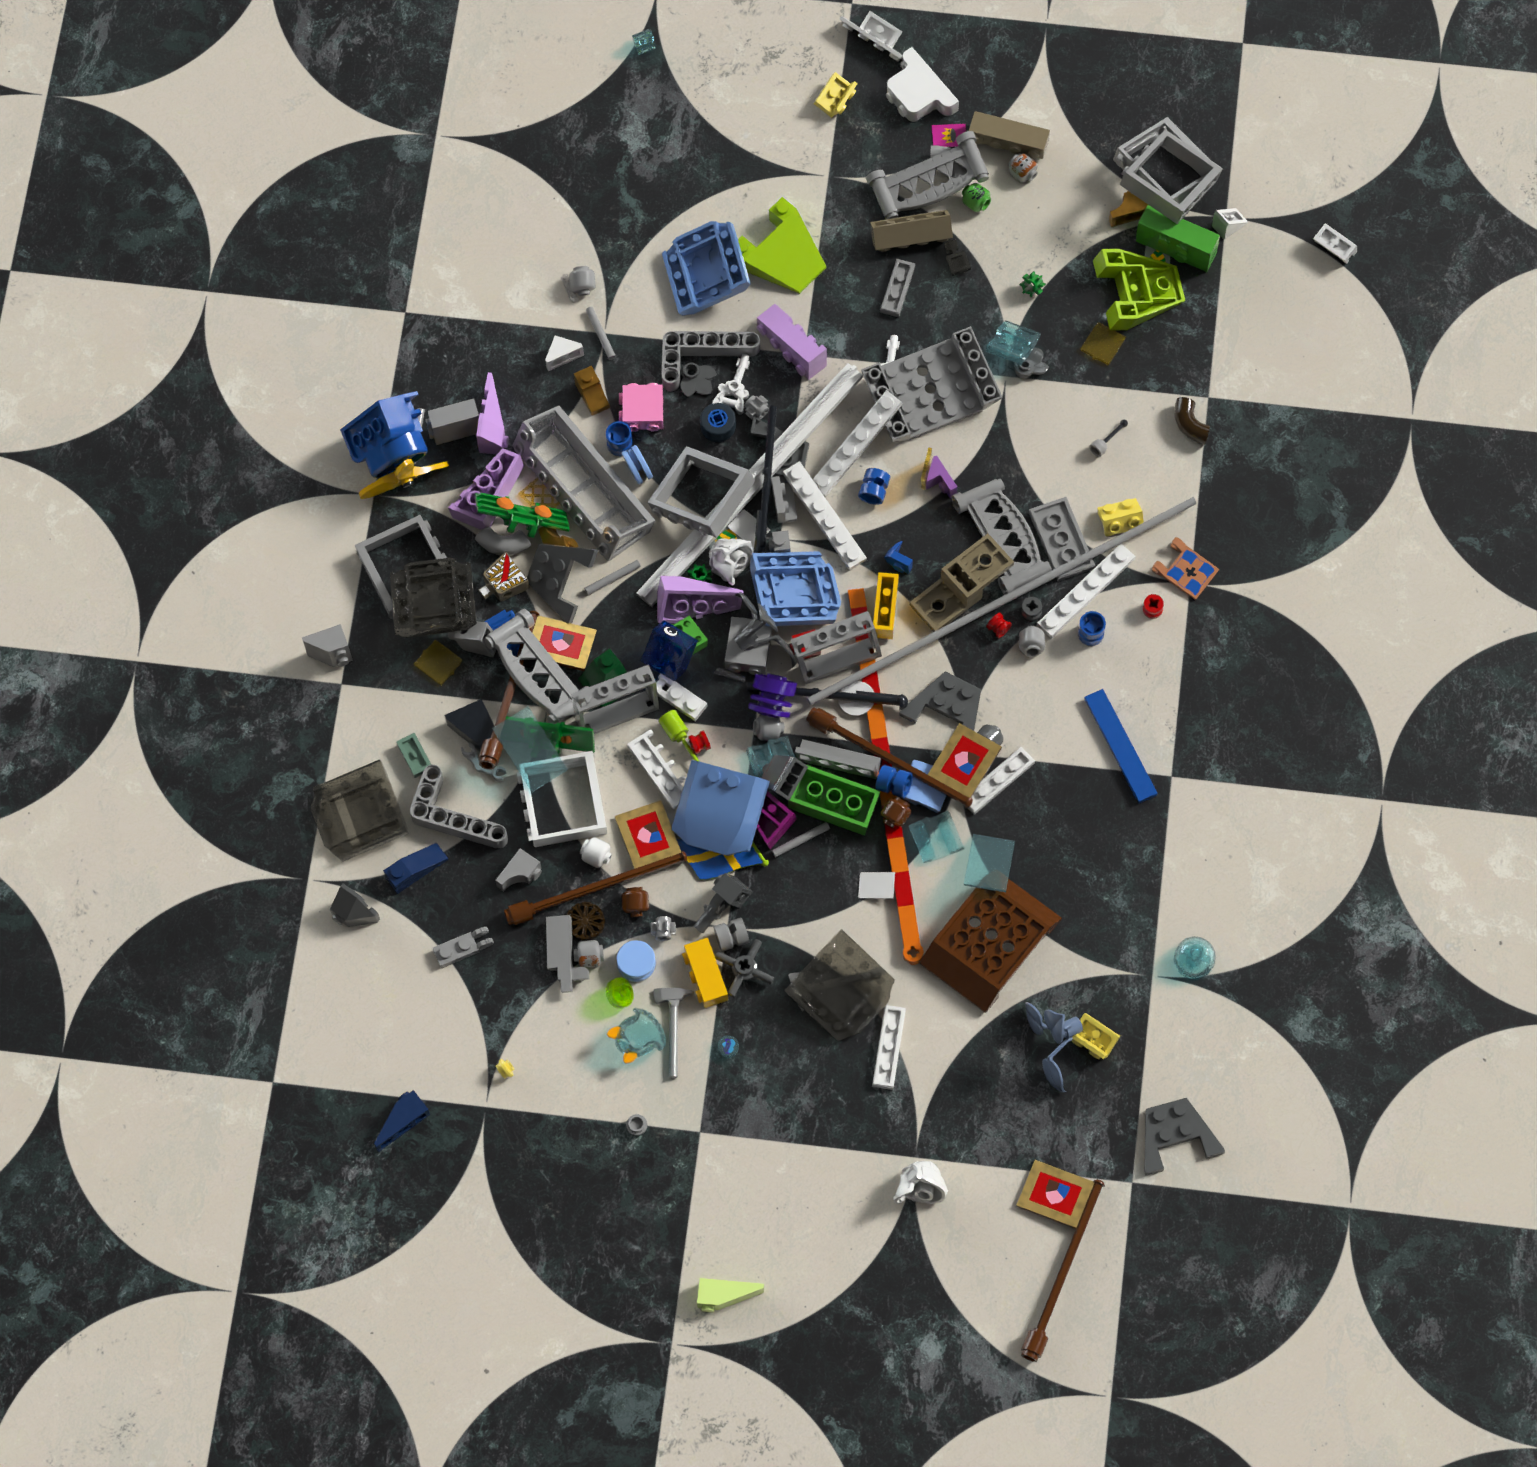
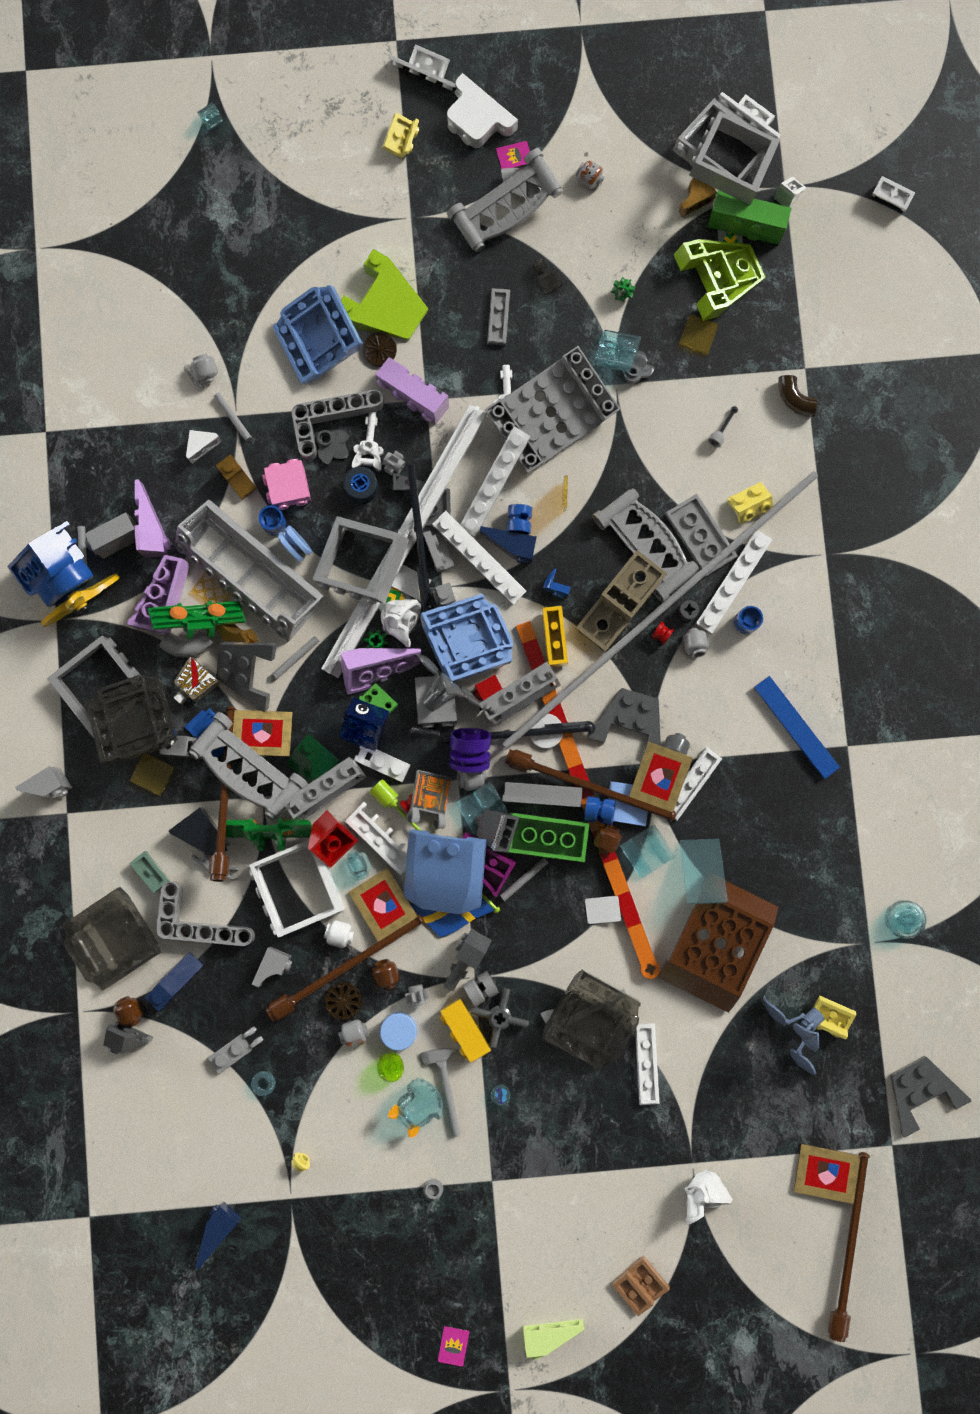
camera: 15 degrees left, 15 degrees up
(362, 883) = (128, 1011): none -> reddish brown head
(483, 993) = (263, 1092): none -> clear light blue piece
(529, 749) = (255, 853): clear light blue piece -> none
(560, 952) = (327, 1038): light grey piece -> none
(609, 754) = (330, 839): none -> red slope
(622, 1287) = (453, 1346): none -> dark pink sticker
(630, 790) = (357, 865): none -> clear light blue head
(722, 735) = (431, 796): none -> flag
(767, 293) = (379, 348): none -> dark brown wheel
(833, 1265) = (640, 1285): none -> medium nougat slope
(863, 509) = (514, 544): none -> dark blue slope
(911, 229) = (500, 257): dark tan brick -> none
(939, 474) = (576, 495): medium lavender slope -> none
(976, 197) = (553, 212): bright green head -> none
(1010, 135) = (572, 144): dark tan brick -> none
(1150, 610) = (795, 588): red wheel -> none
(1189, 571) = (823, 543): nougat flag -> none
(1205, 140) = (751, 112): none -> white bracket

